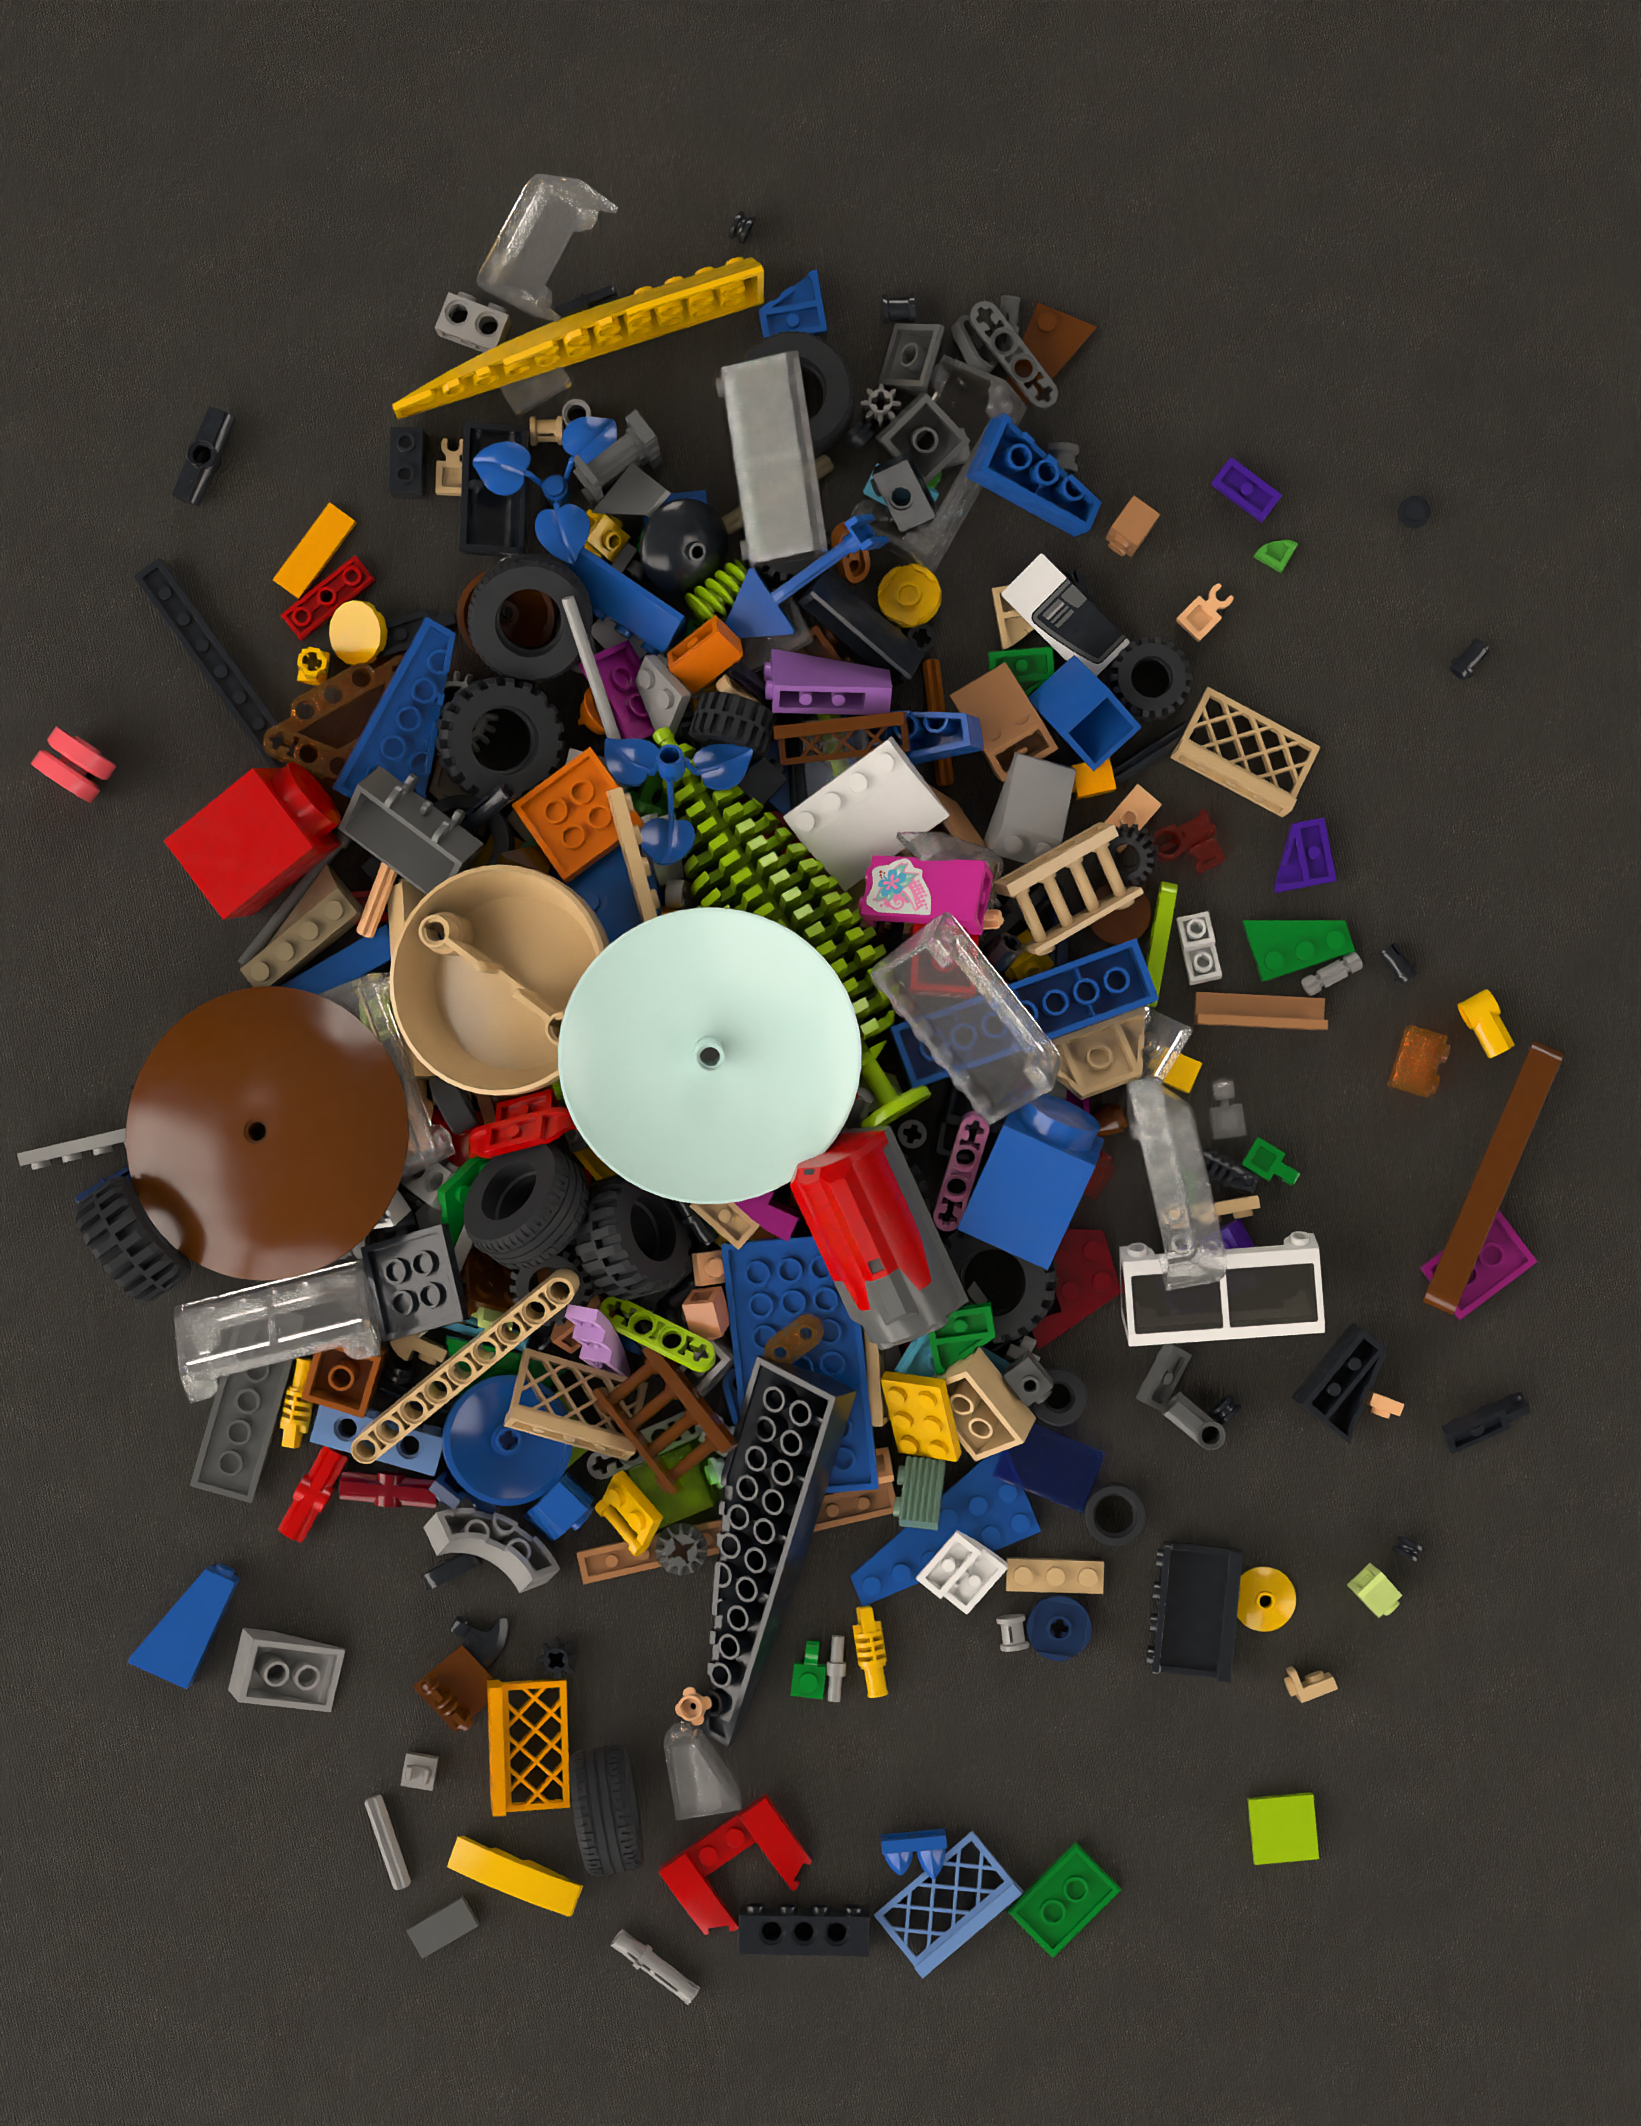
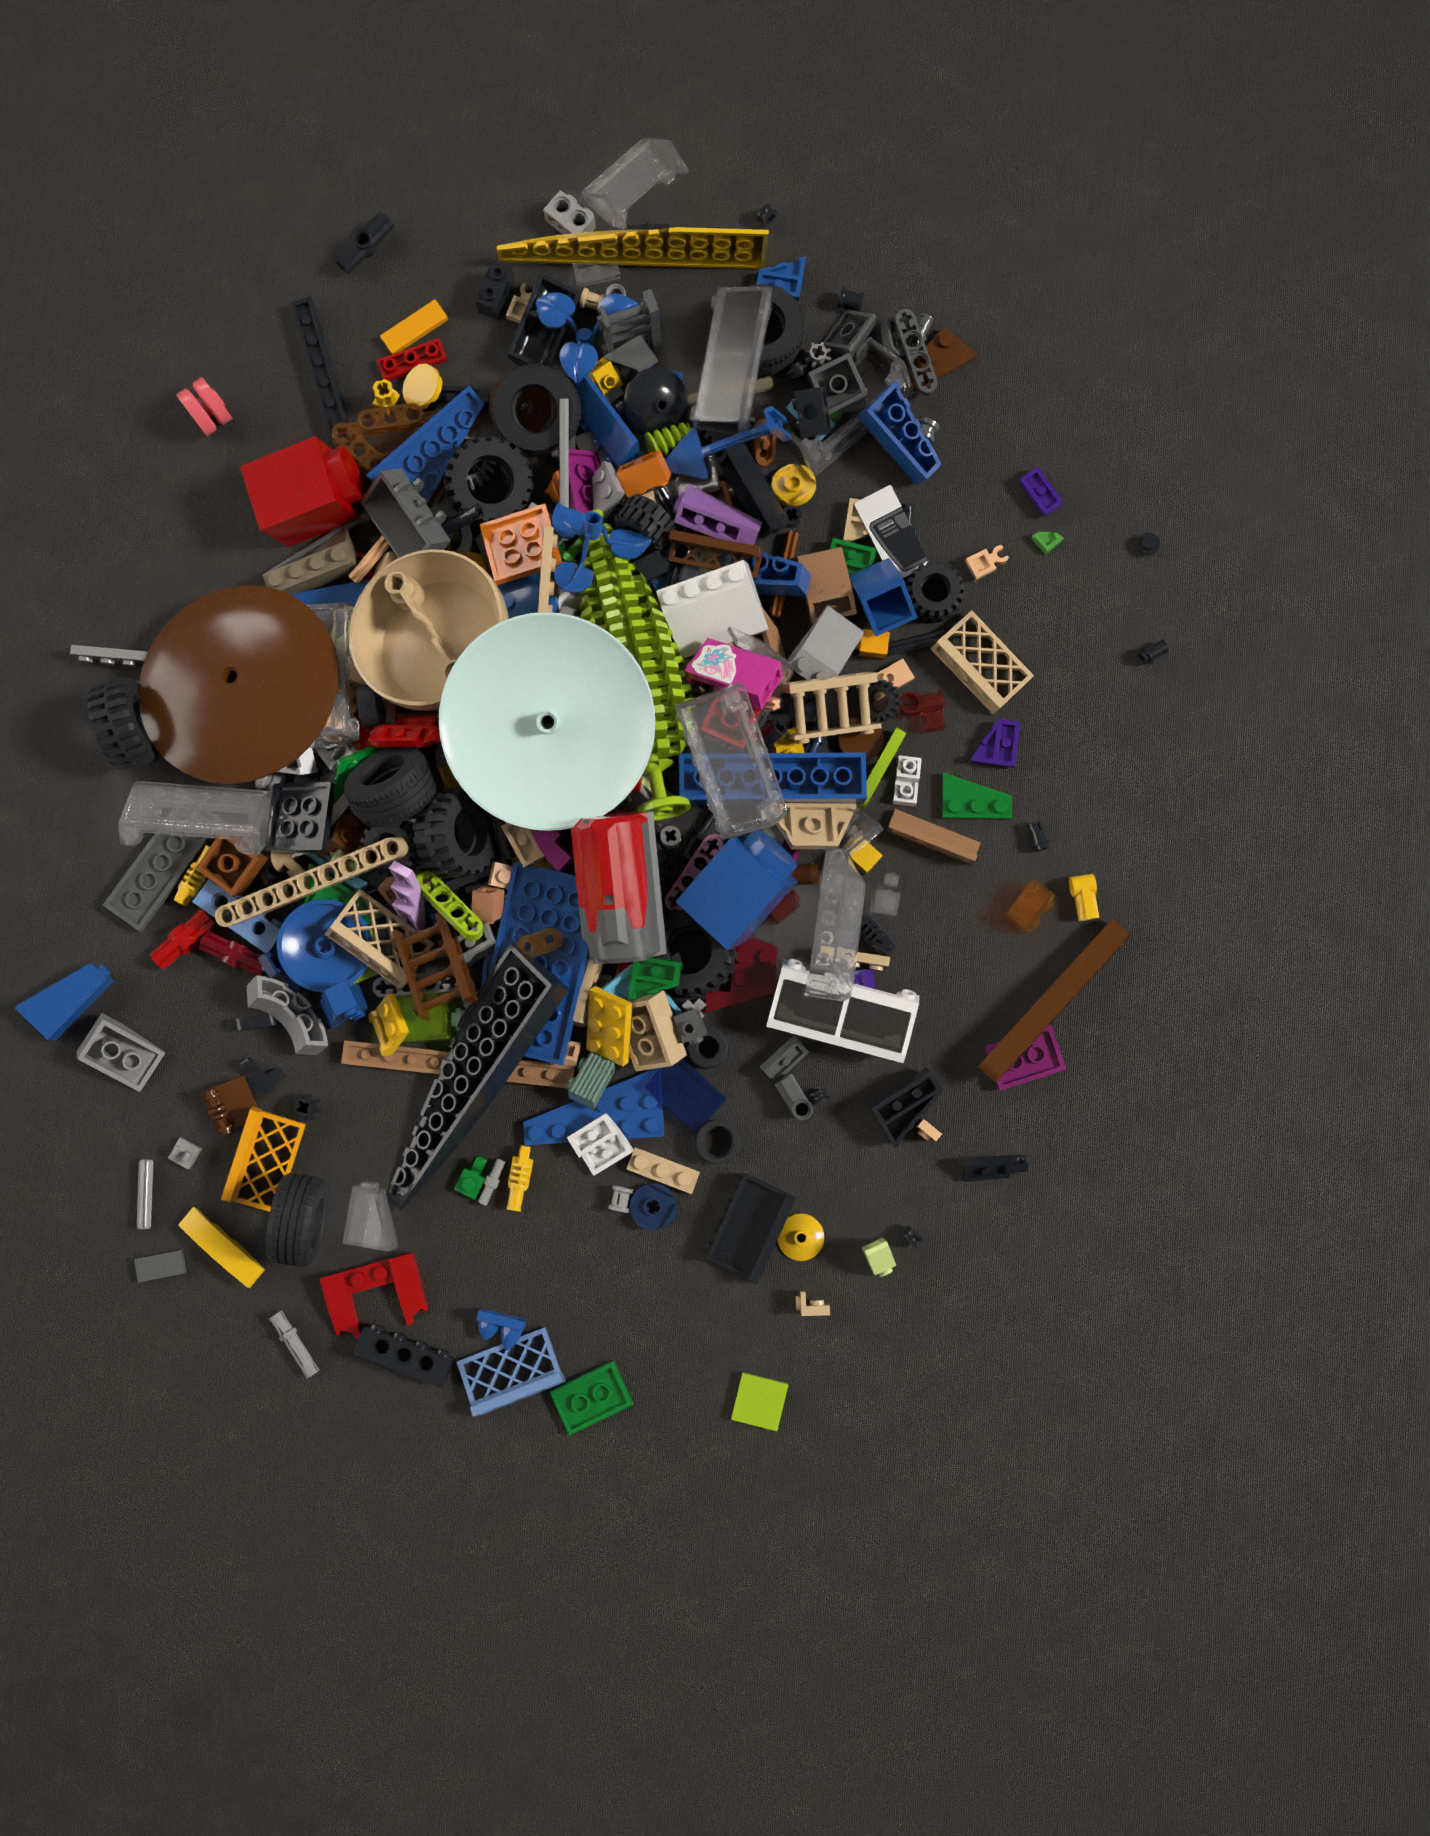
camera: 20 degrees right, 5 degrees down
(684, 1708) = (378, 1173): light nougat plate -> none
(685, 1534) = (424, 1068): dark grey gear -> none
(1131, 527) = (956, 487): medium nougat brick -> none
(1266, 1160) = (903, 938): green plate -> none
(1332, 973) = (991, 828): light grey axle -> none

